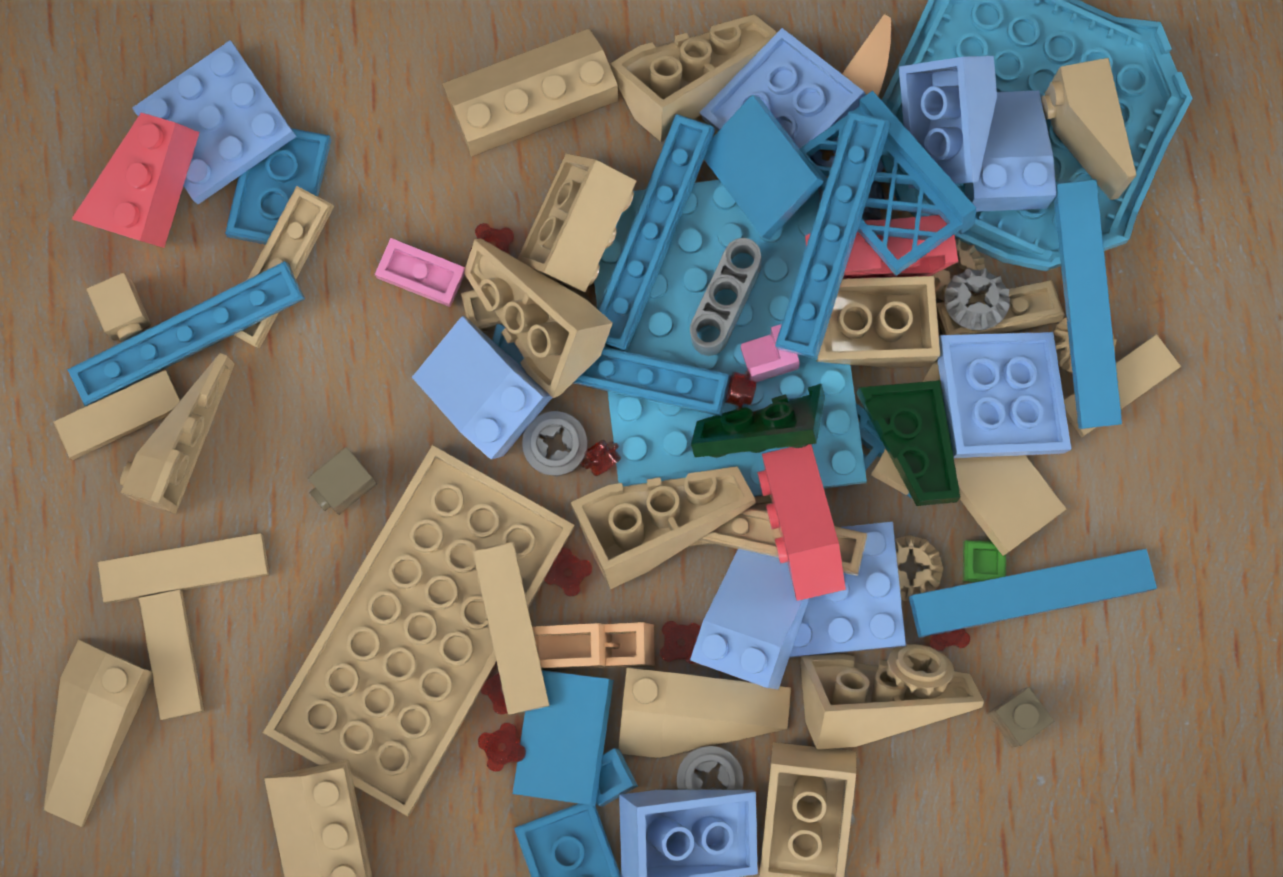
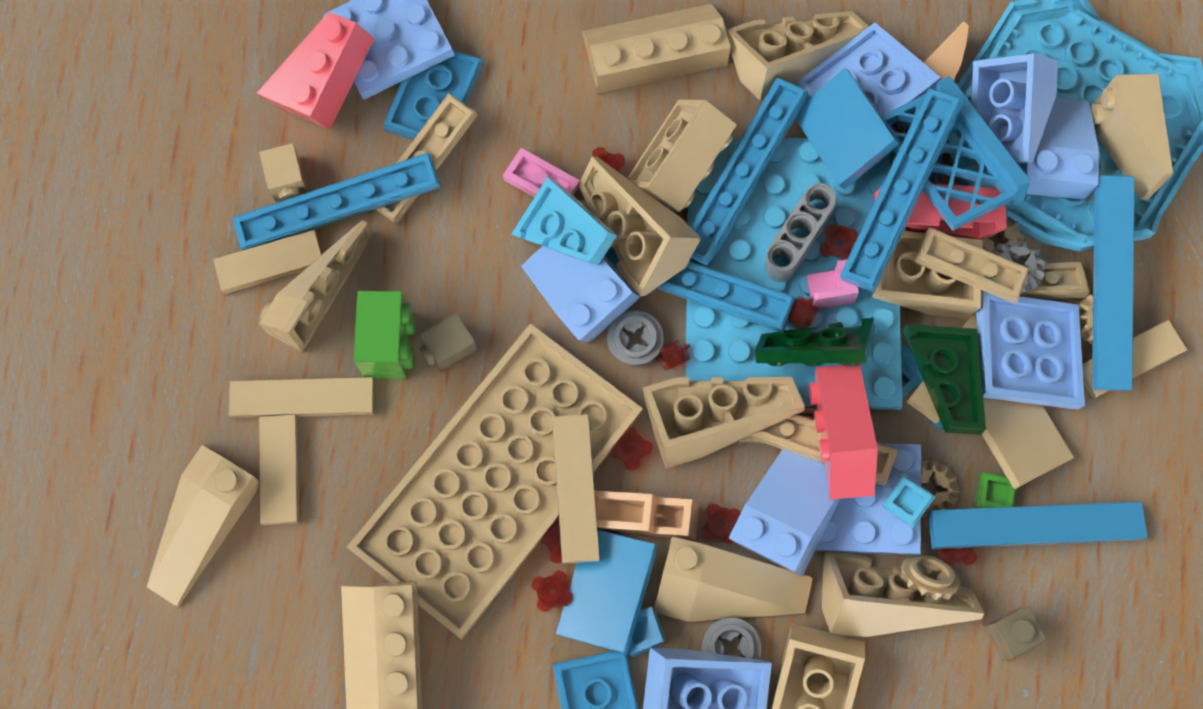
camera: 10 degrees right, 5 degrees down
(266, 485) = (383, 335): none -> bright green brick
(454, 326) = (564, 224): none -> medium azure wing
(766, 291) = (835, 233): none -> clear red plate
(884, 589) = (908, 501): none -> medium azure tile
(924, 308) = (972, 265): none -> tan tile

